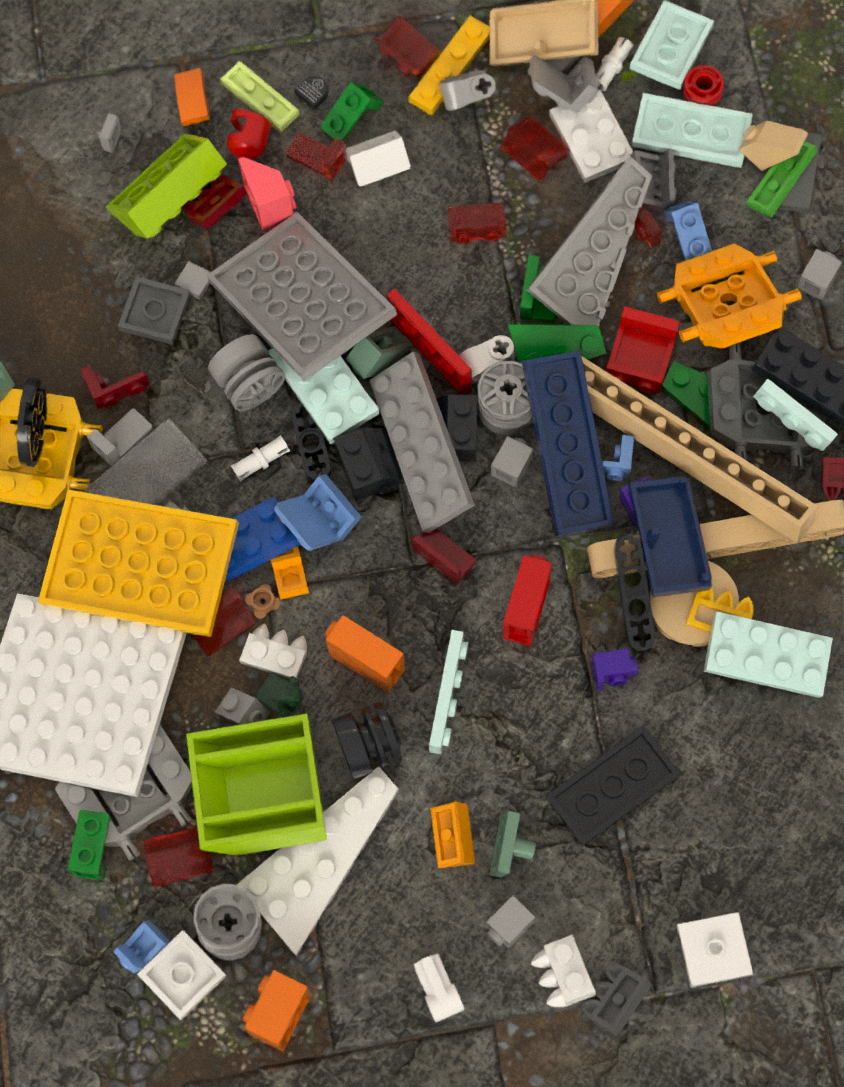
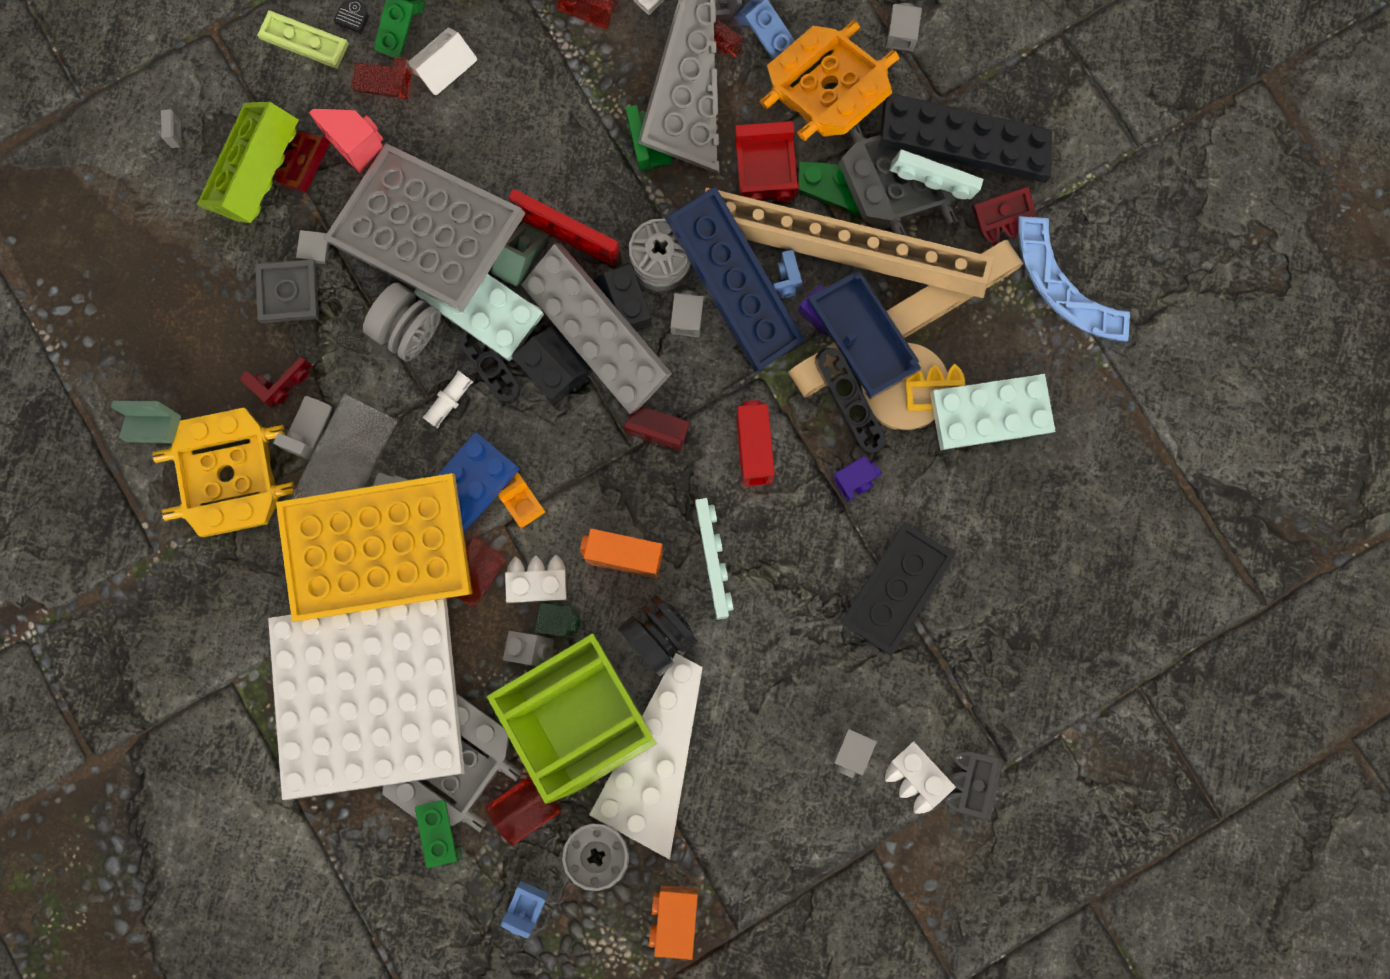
camera: 25 degrees left, 10 degrees up
(31, 422) = (213, 452): black tile -> none
(181, 975) = (571, 919): white plate -> none
(191, 97) = (236, 63): orange slope -> none
(252, 137) = (313, 83): red helmet -> none
(254, 598) = (496, 537): medium nougat plate -> none
(319, 515) = (525, 435): medium blue bracket -> none
(440, 994) = (816, 843): white piece -> none
(452, 835) = (768, 690): light orange slope -> none
(477, 222) = (562, 91): clear red bracket -> none
(487, 354) = (622, 223): white piece -> none
(508, 845) = (825, 681): sand green tile -> none
(544, 340) = (677, 187): green wing -> none
(714, 949) = (1045, 704): white plate -> none

